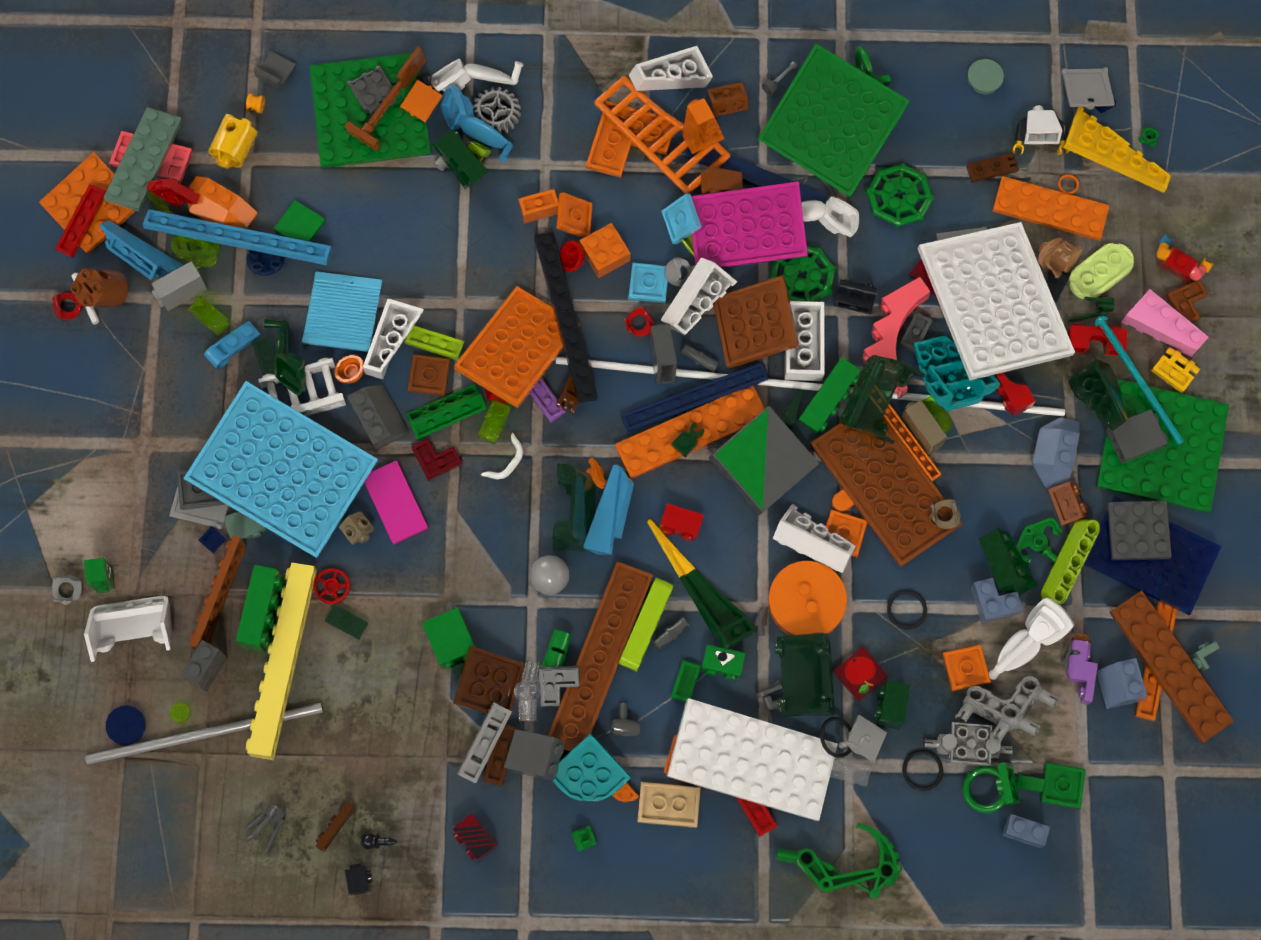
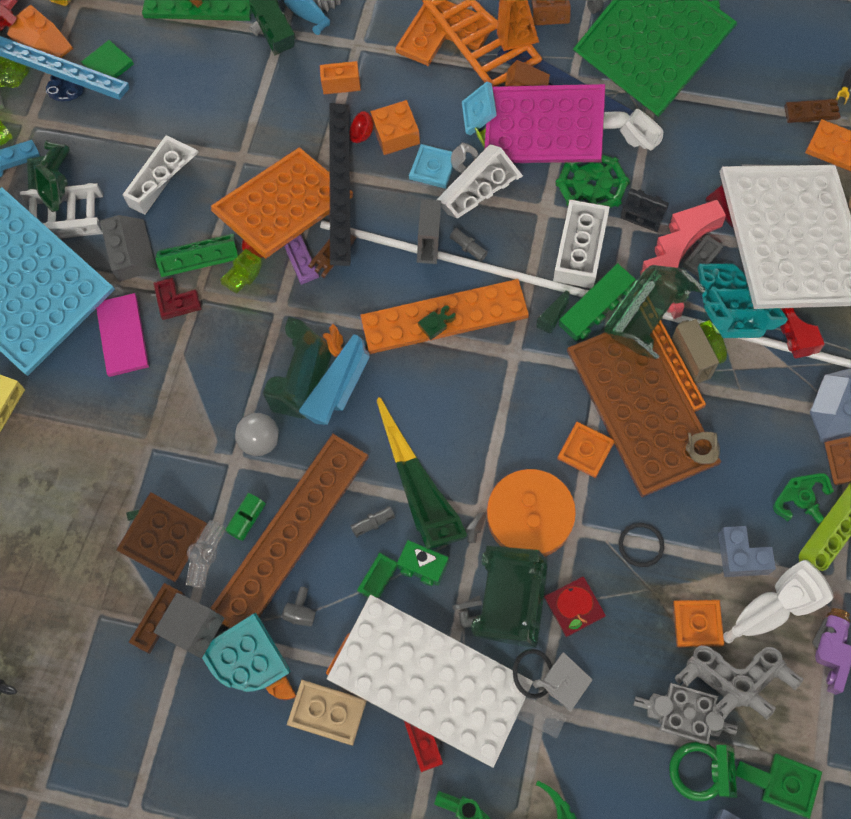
camera: 20 degrees right, 5 degrees down
(331, 586) = (34, 406): red wheel -> none
(342, 312) = (122, 145): medium azure door -> none
(346, 622) = (38, 445): clear green plate -> none
(349, 369) = (112, 199): orange hat -> none
(356, 528) = (73, 351): dark tan brick -> none
(429, 375) = (190, 218): dark orange tile -> none
(435, 342) = (201, 185): lime plate -> none
(448, 637) = (134, 479): green brick -> none
(474, 837) = (102, 705): brick -> none
(480, 150) = (296, 21): lime tile -> none
(484, 742) = (139, 601): light grey hinge -> none
(512, 465) = (250, 318): white animal -> none
(552, 679) = (231, 546): tile -> none
(574, 215) = (371, 89): orange tile -> none
(584, 838) = (223, 731): green tile -> none
(641, 311) = (414, 191): red piece -> none
(646, 624) = (348, 506): lime beam -> none
(681, 522) = (411, 405): red brick -> none
(694, 397) = (454, 282): dark blue tile -> none
(756, 322) = (534, 216): dark orange plate -> none
(763, 460) = (512, 355): tile -> none
(813, 540) = (550, 449): white wedge -> none
(842, 502) = (590, 415): orange tile -> none
(892, 705) = (604, 649): dark green brick -> none
(895, 204) = (711, 112): green plate -> none
(905, 771) = (641, 717): black piece -> none
(985, 76) = (818, 25): sand green tile -> none
(1006, 562) = (764, 513): dark green wedge -> none

